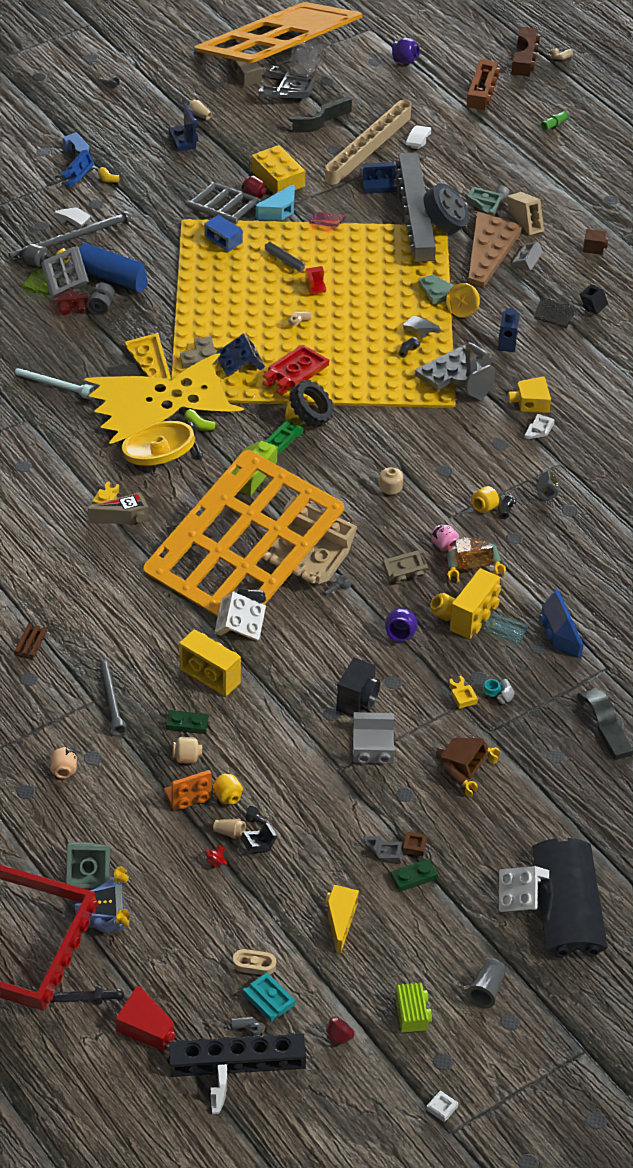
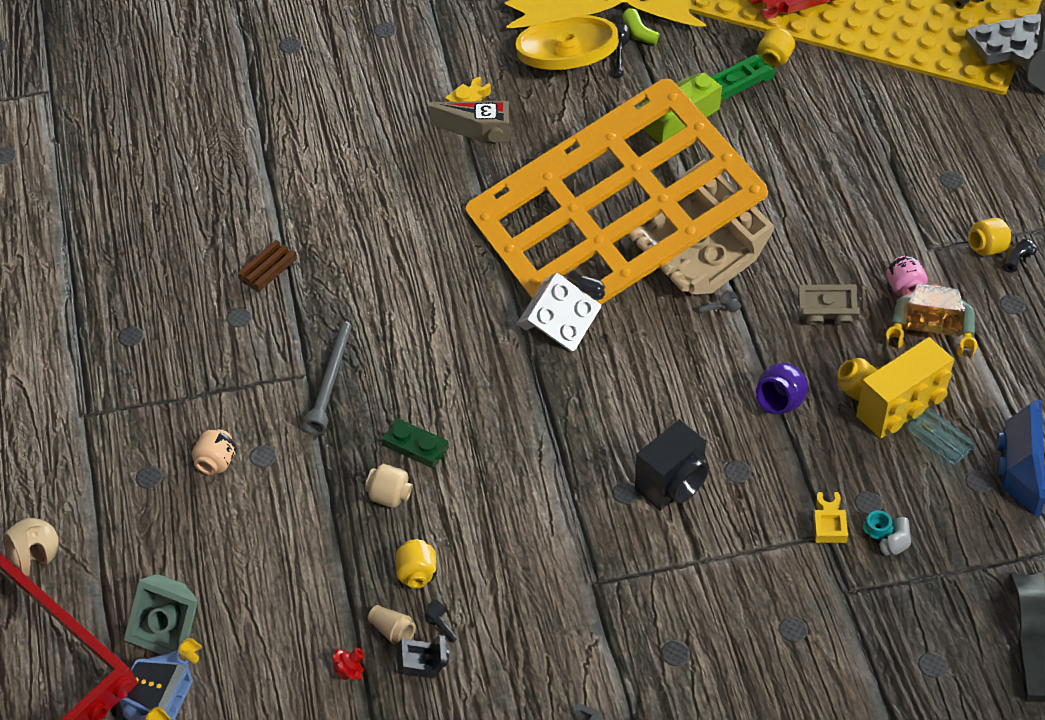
camera: 25 degrees right, 5 degrees up
(189, 790) = (360, 550): orange bracket -> none
(210, 662) = (481, 366): yellow brick -> none
(304, 411) = (781, 48): black tyre -> none
(373, 738) = (665, 550): light grey panel -> none
(391, 481) = (863, 174): tan head -> none
(464, 758) = (785, 625): reddish brown torso -> none

